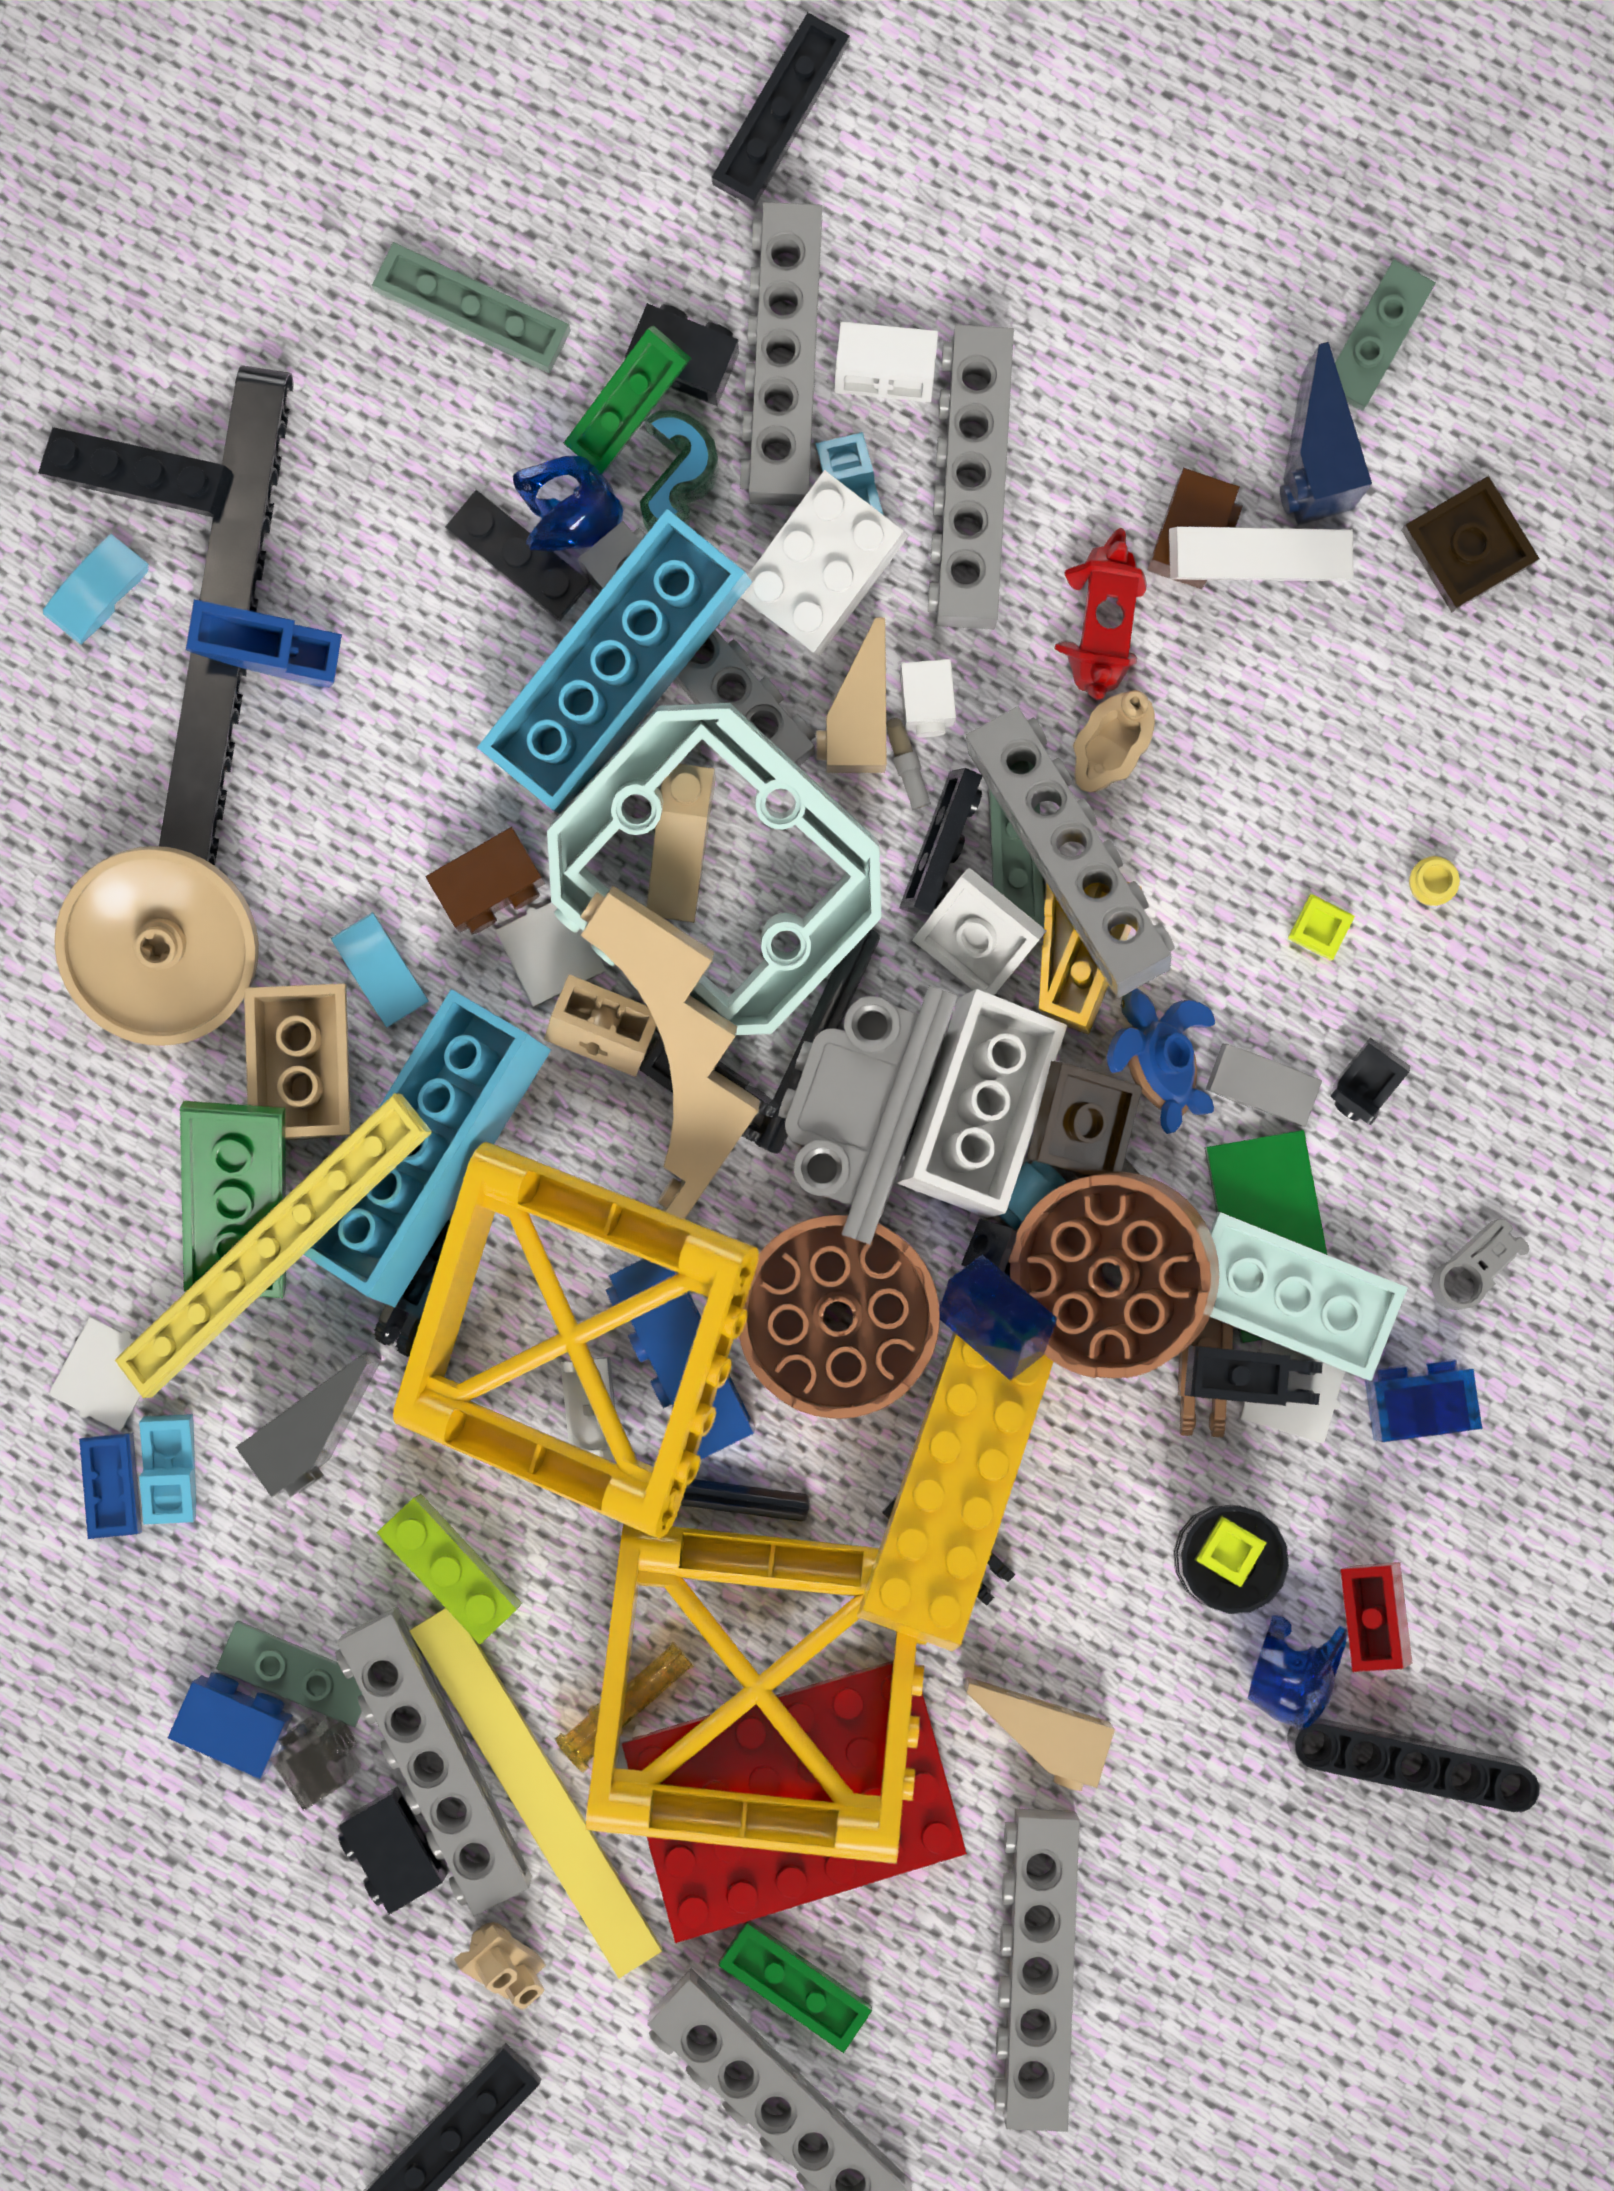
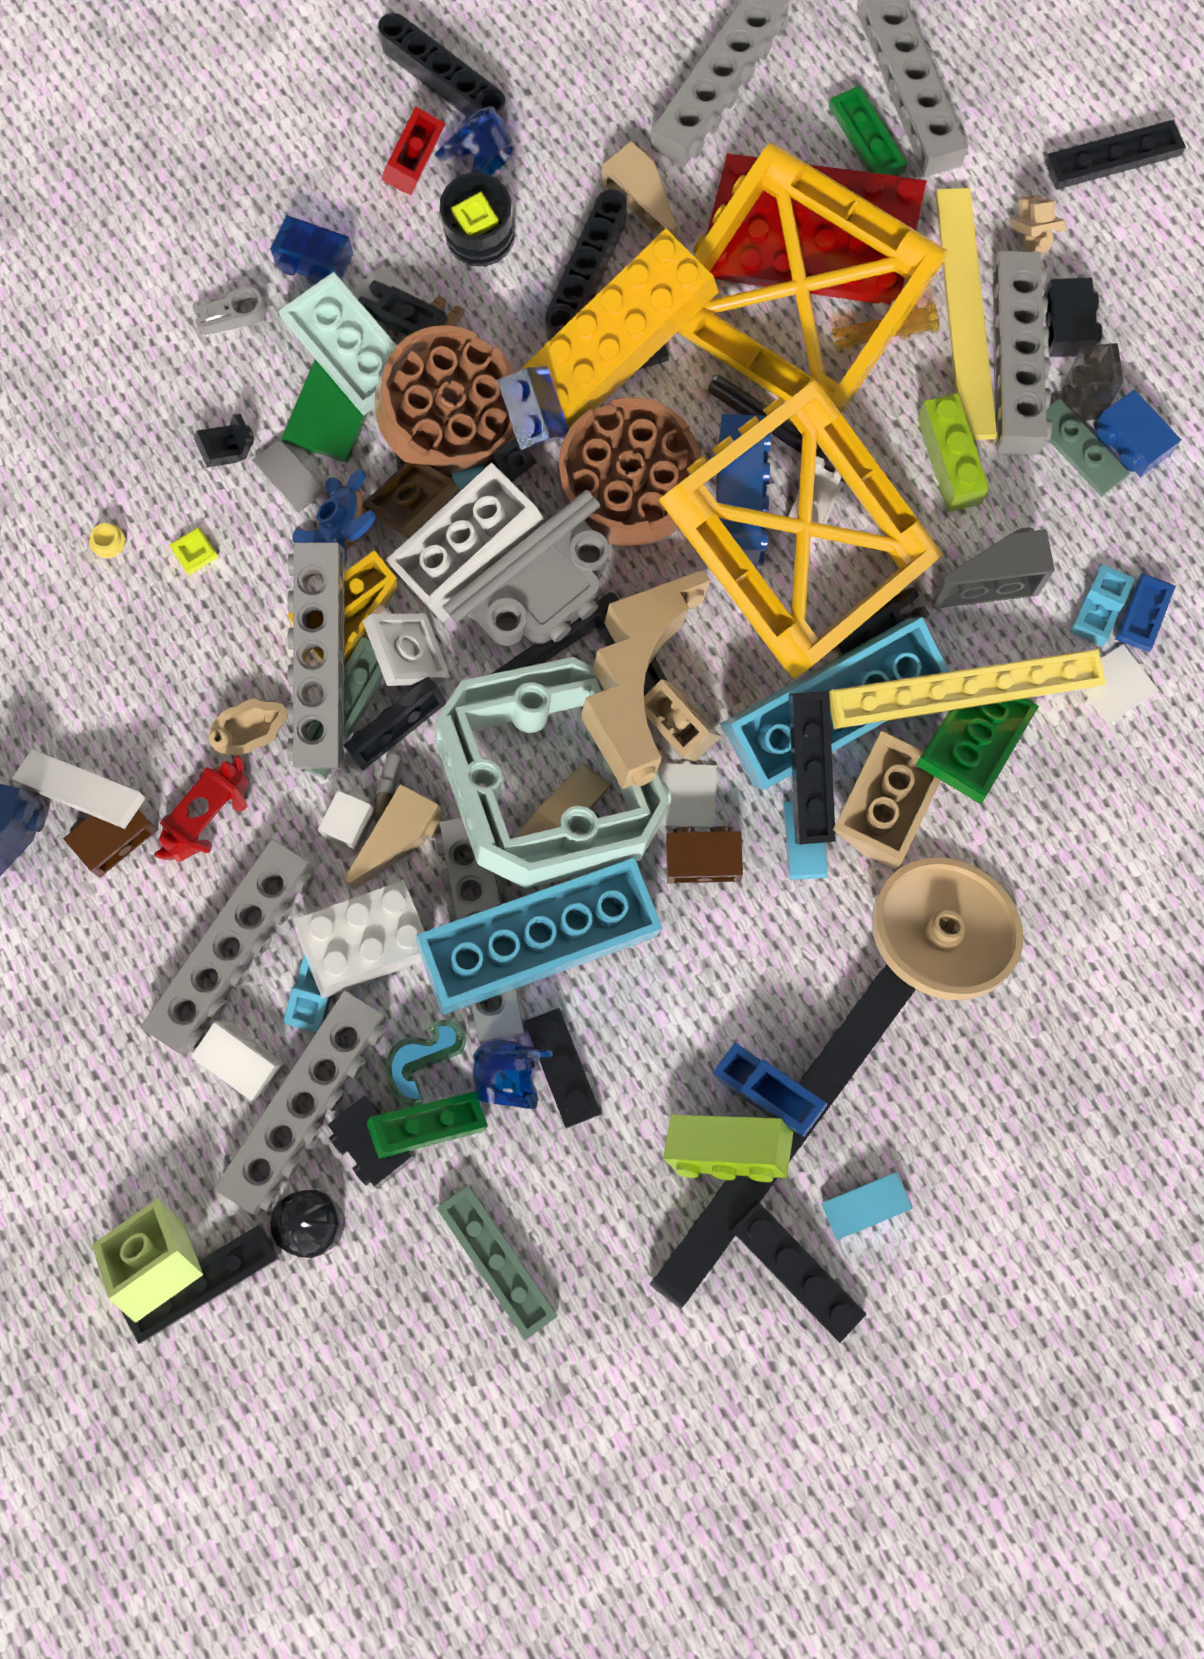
camera: 145 degrees left, 10 degrees down
(276, 553) = (728, 1147): none -> lime brick
(407, 1040) = (812, 767): none -> black plate
(703, 234) = (307, 1223): none -> black piece
(847, 92) = (146, 1260): none -> yellowish green brick
(1068, 1597) = (588, 255): none -> black beam

